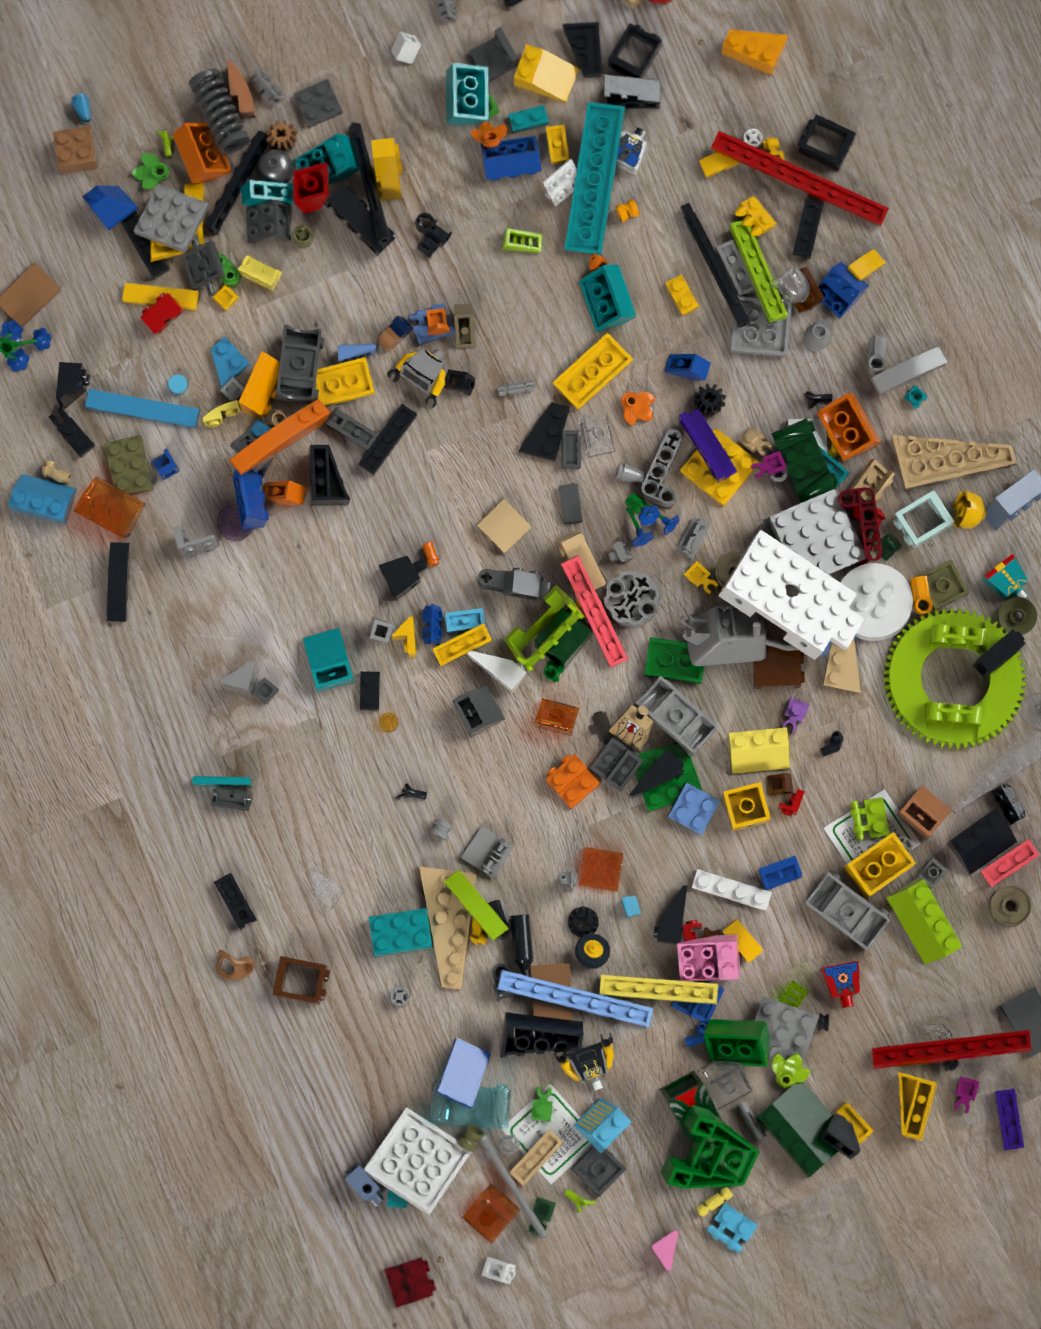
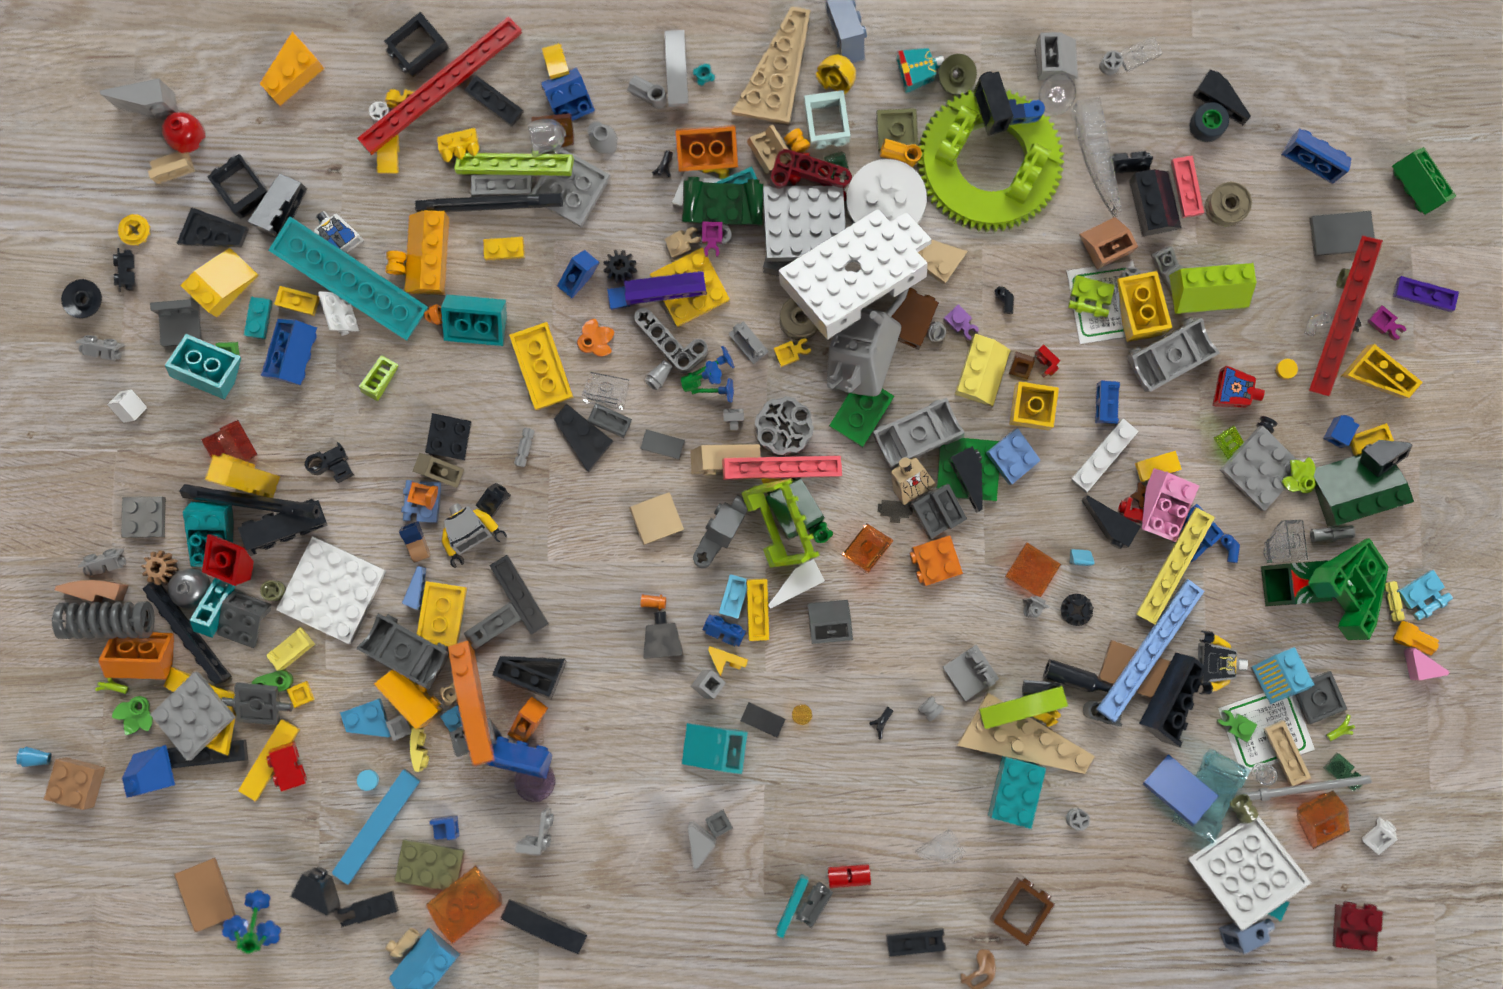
camera: 70 degrees left, 5 degrees up
(267, 819) = (849, 876): none -> red pin
(324, 283) = (331, 590): none -> white plate
(412, 145) = (230, 441): none -> clear red slope
(489, 135) = (256, 363): orange plate -> none
(496, 321) = (448, 436): none -> black hinge
(592, 951) = (1111, 613): black wheel -> none
(647, 233) = (427, 253): none -> light orange slope
(681, 407) = (617, 298): none -> blue tile
(688, 1232) = (1411, 636): none -> light orange piece
(738, 1042) = (1257, 512): green slope -> none
(775, 695) = (936, 331): none -> light grey plate
(847, 1091) = (1341, 431): none -> blue brick
(883, 1021) = (1286, 369): none -> yellow tile
(891, 502) = (797, 141): none -> light orange wheel
(1006, 687) = (1026, 112): none -> leg

